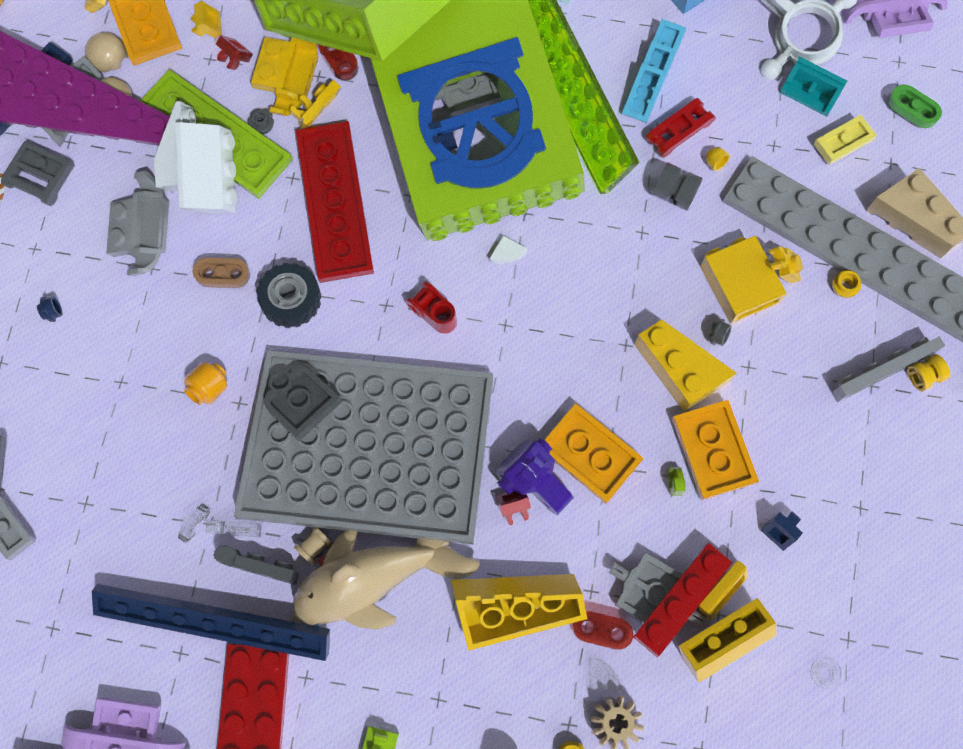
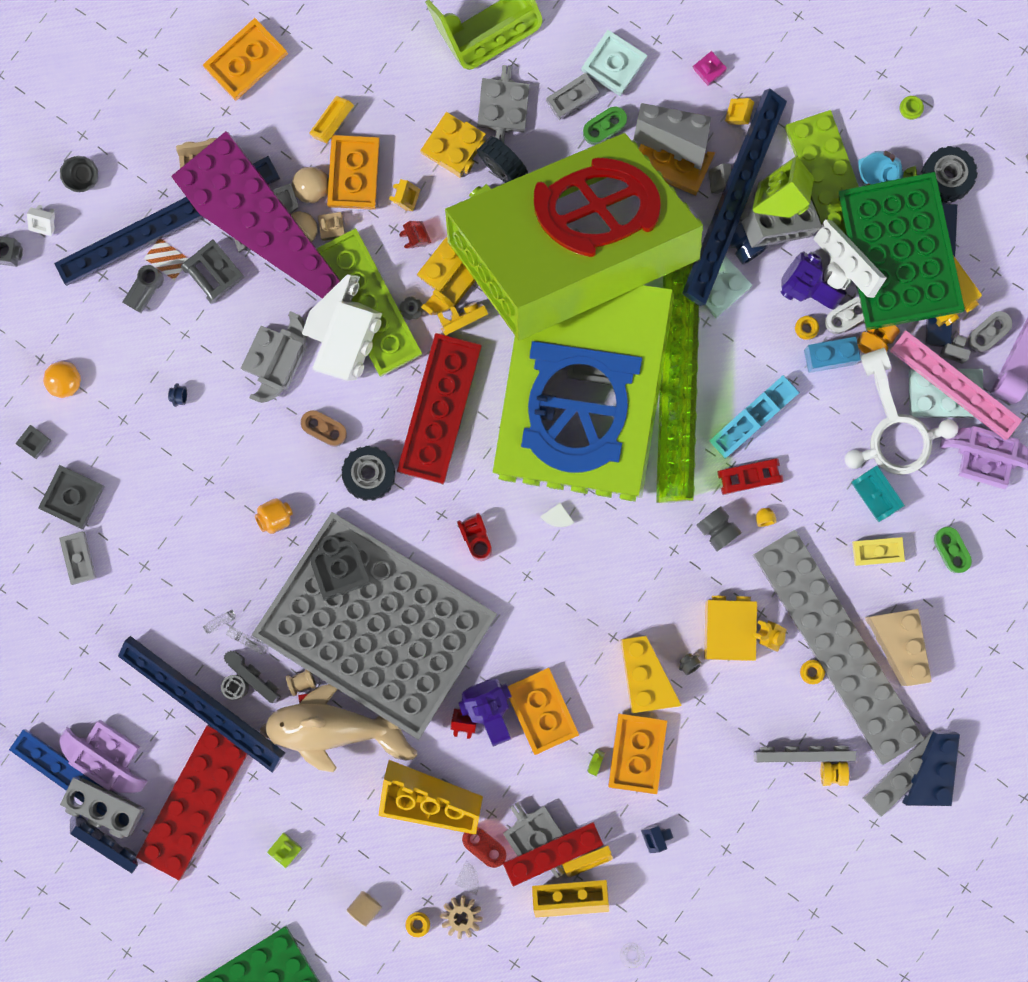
camera: 25 degrees right, 10 degrees up
(142, 80) = (331, 226): none -> tan tile
(246, 587) = (238, 686): none -> light grey wheel

